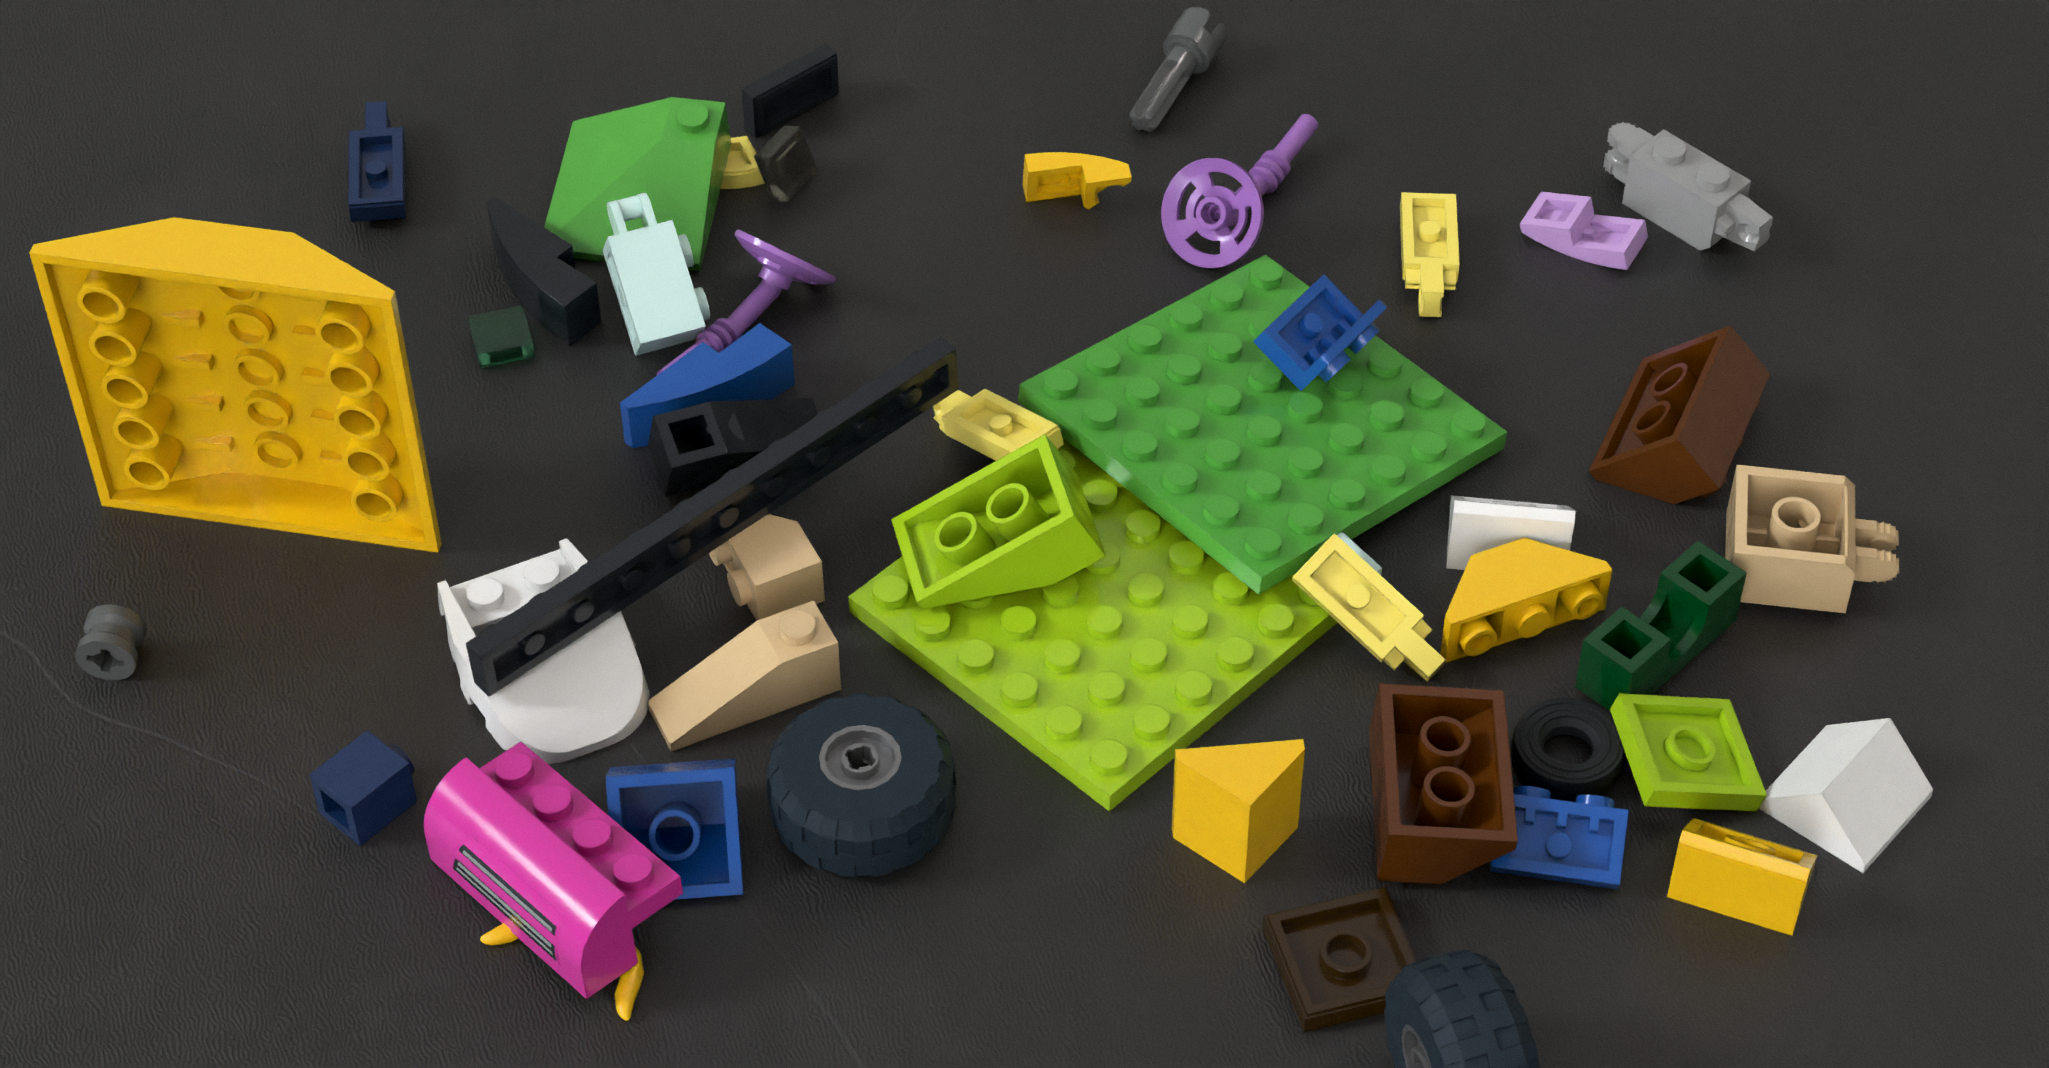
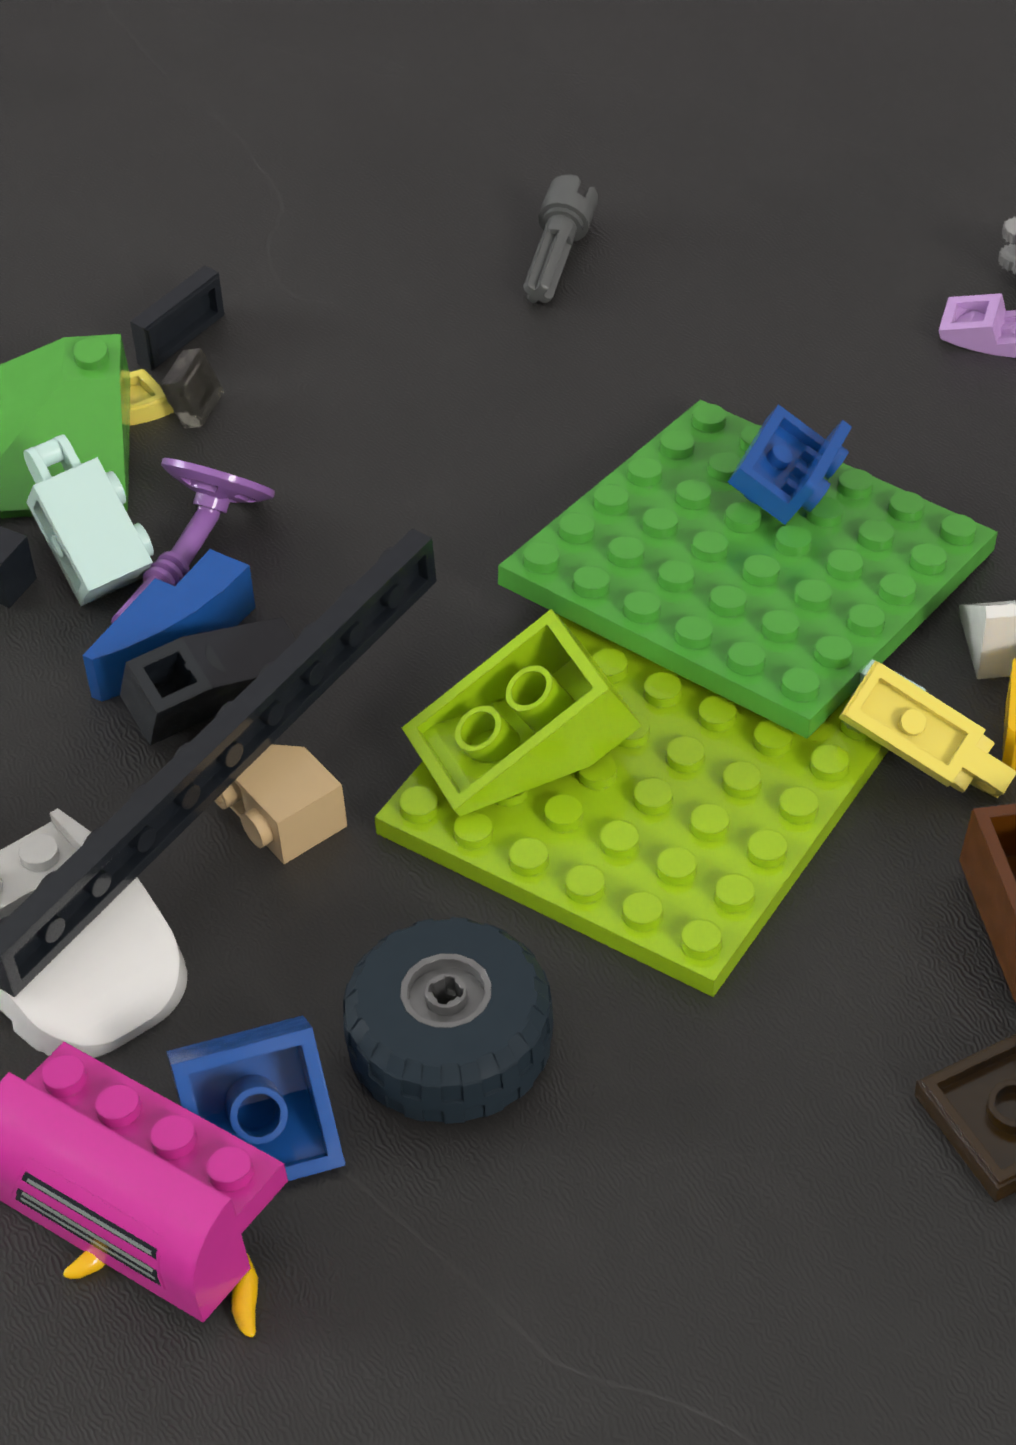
camera: 10 degrees left, 0 degrees up
(751, 677) = (294, 923): tan slope -> none
(992, 423) = (478, 612): light yellow hinge -> none
(1071, 174) = (484, 352): yellow slope -> none
(1222, 206) = (647, 357): medium lavender dish -> none
(1237, 801) = (856, 963): yellow slope -> none
(1429, 247) = (859, 367): light yellow hinge -> none

